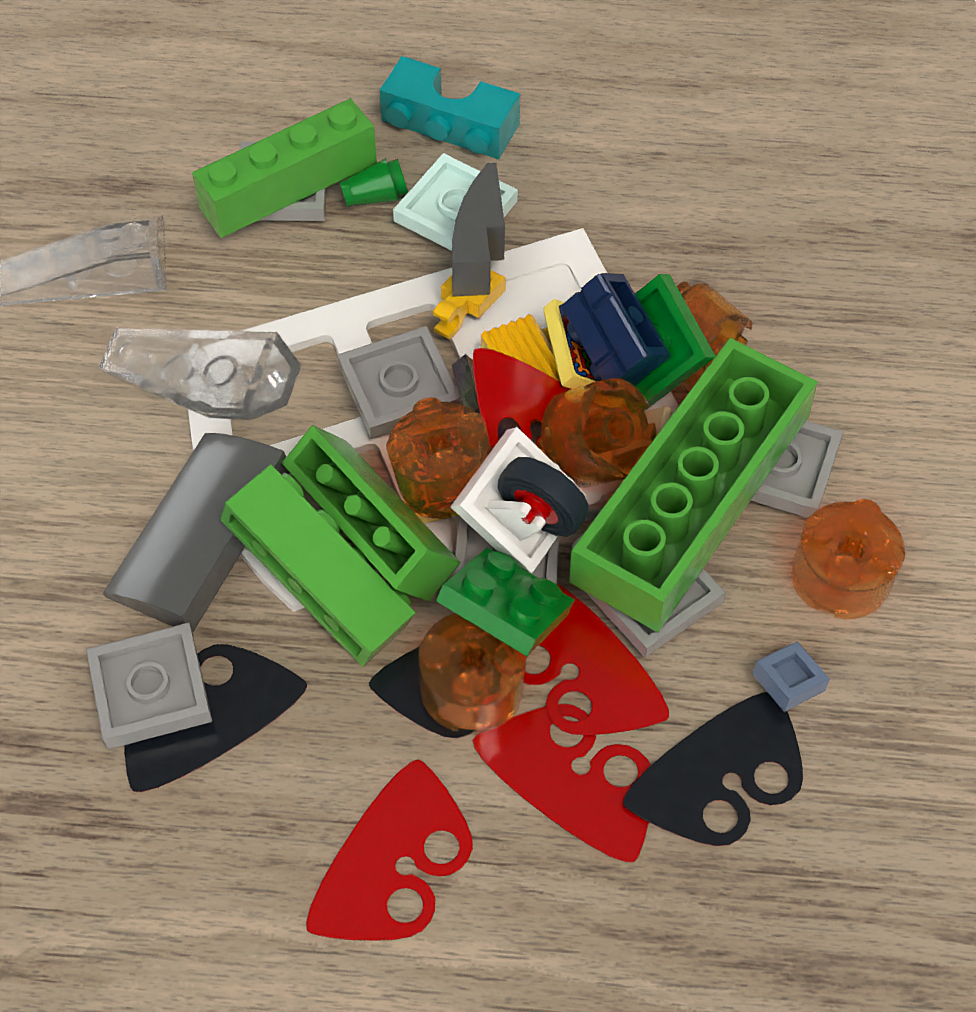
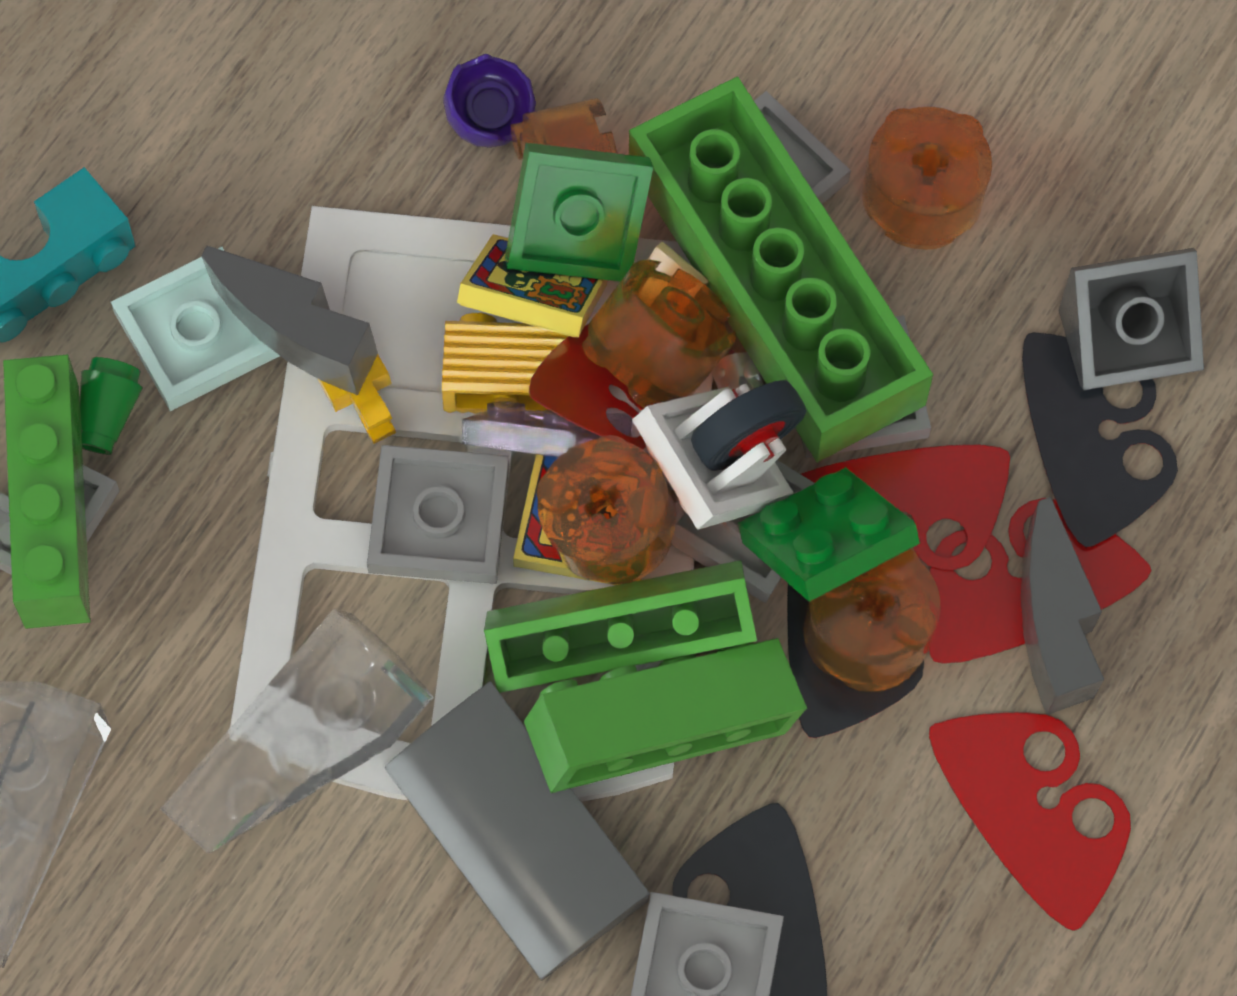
camera: 65 degrees left, 10 degrees up
(548, 797) = (1057, 614): none -> dark grey slope
(614, 330) = (555, 243): dark blue brick -> none
(721, 269) = (486, 99): none -> dark purple hair
(790, 676) = (1030, 307): sand blue plate -> none
(827, 749) = (1134, 318): none -> dark grey slope

